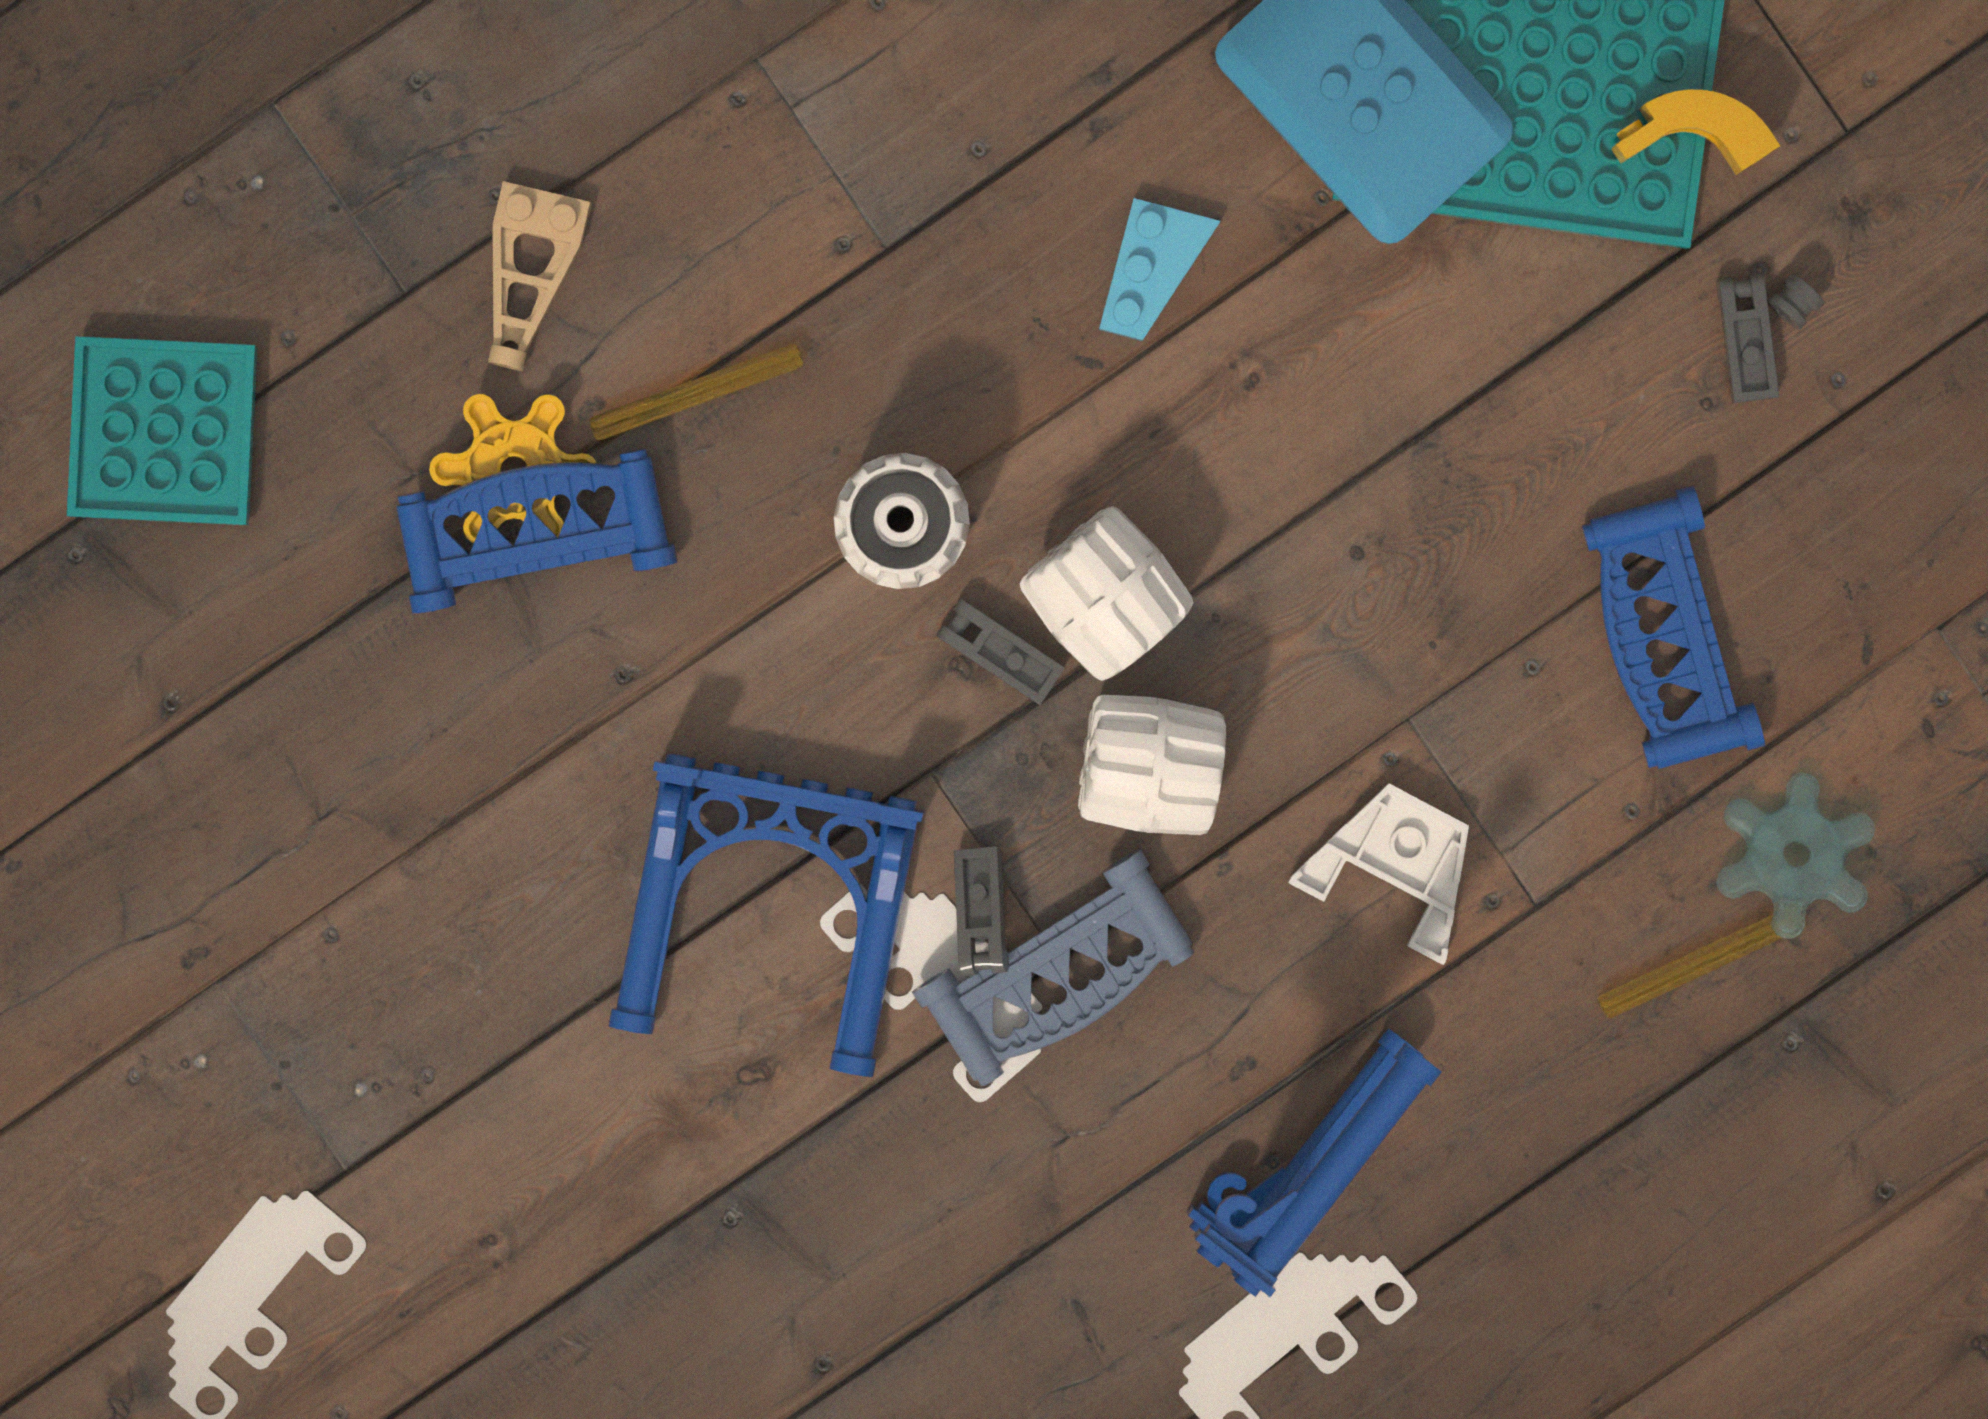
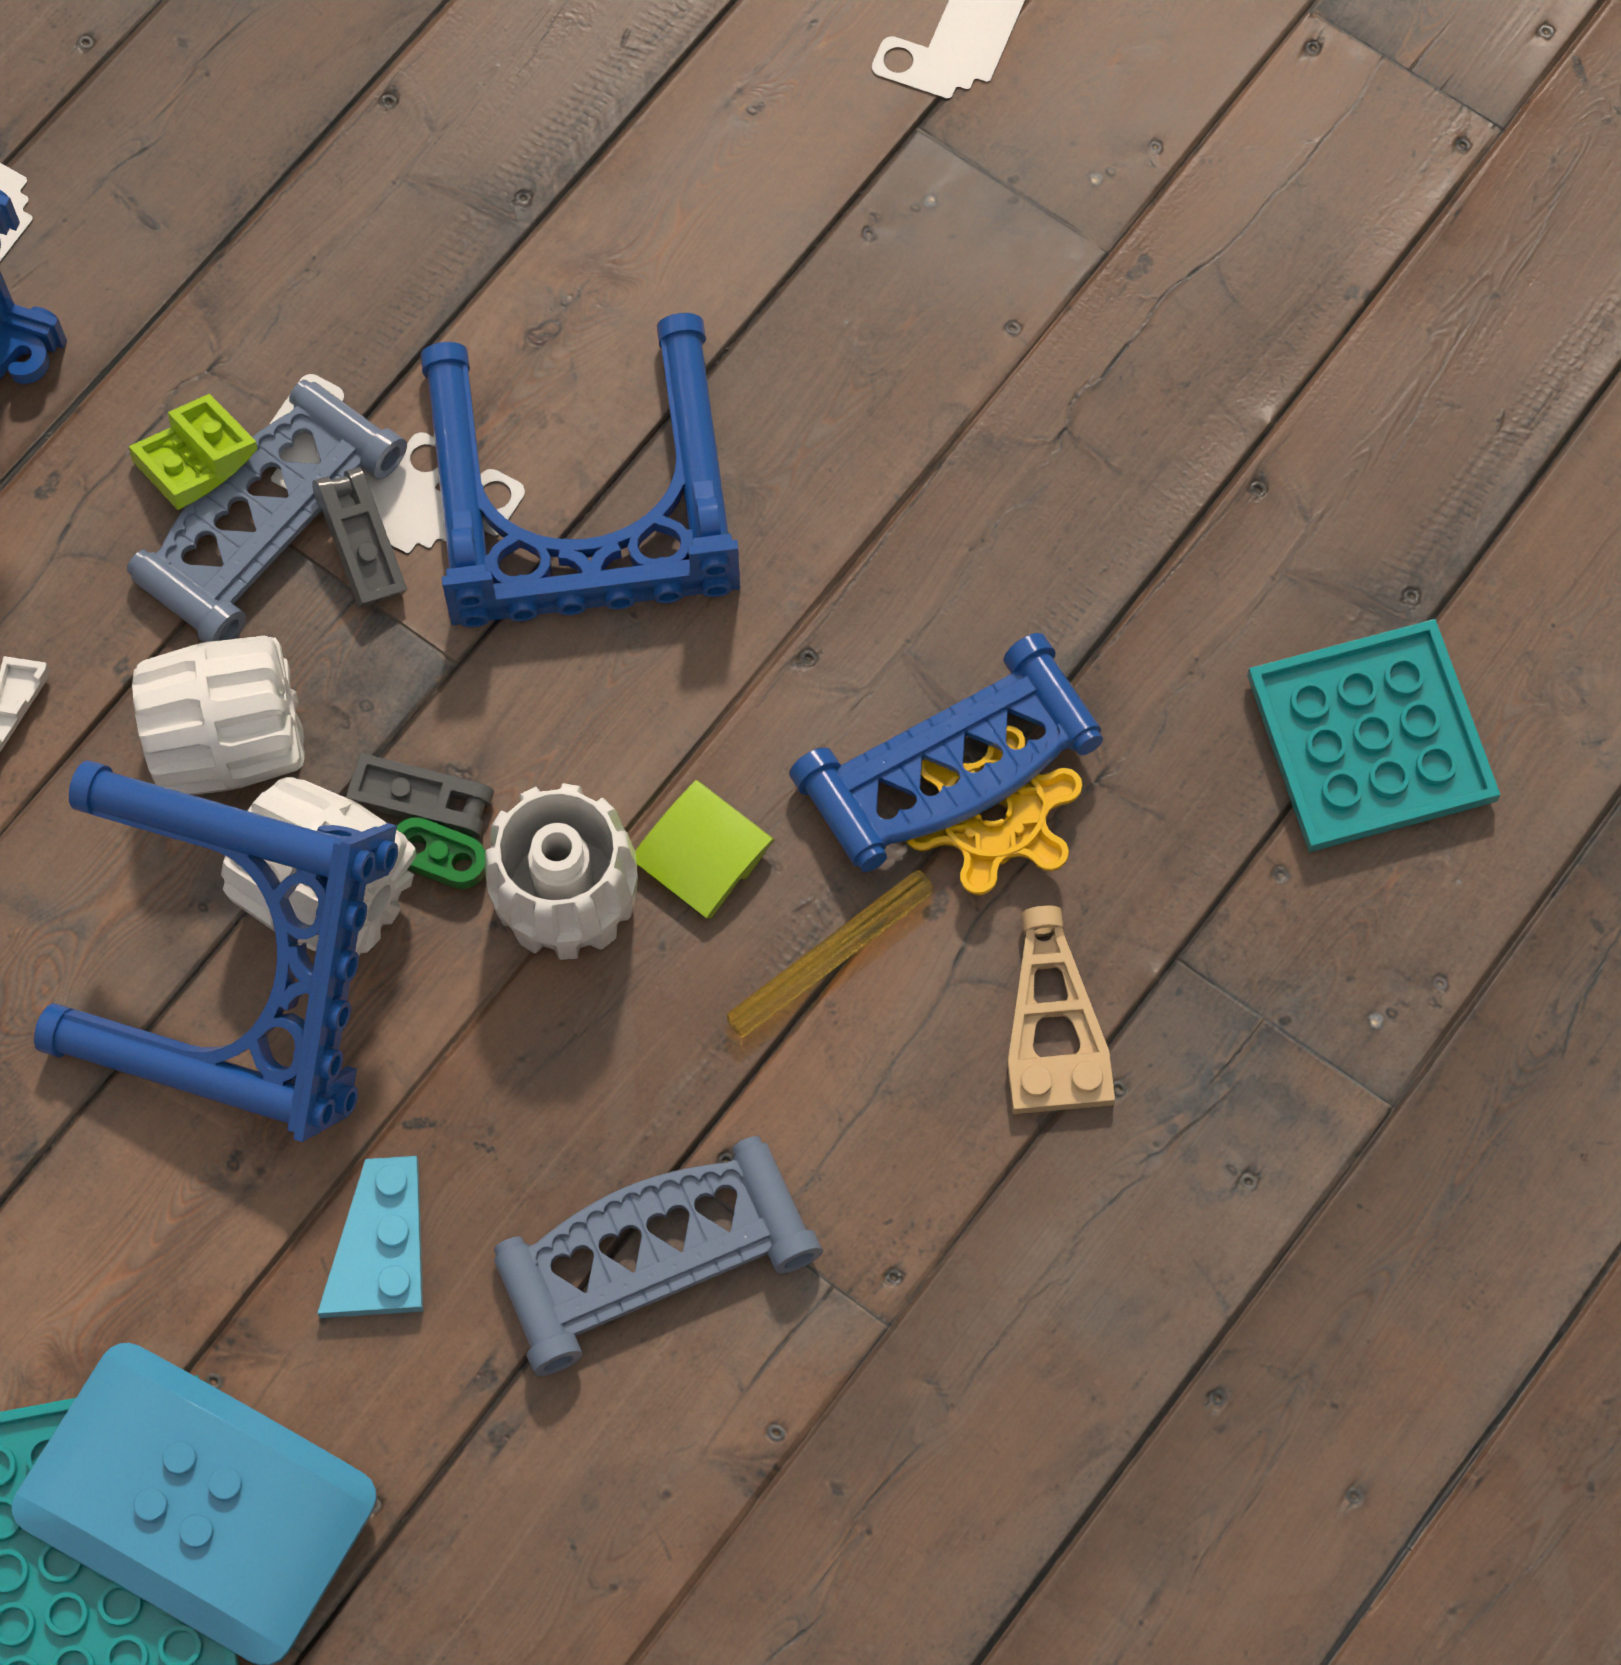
camera: 160 degrees right, 20 degrees down
(773, 521) = (702, 848): none -> lime slope
(832, 171) = (557, 1312): none -> sand blue piece
(998, 593) = (443, 851): none -> green plate
(1094, 555) = (336, 866): none -> blue arch
(1103, 1047) = (195, 452): none -> lime slope

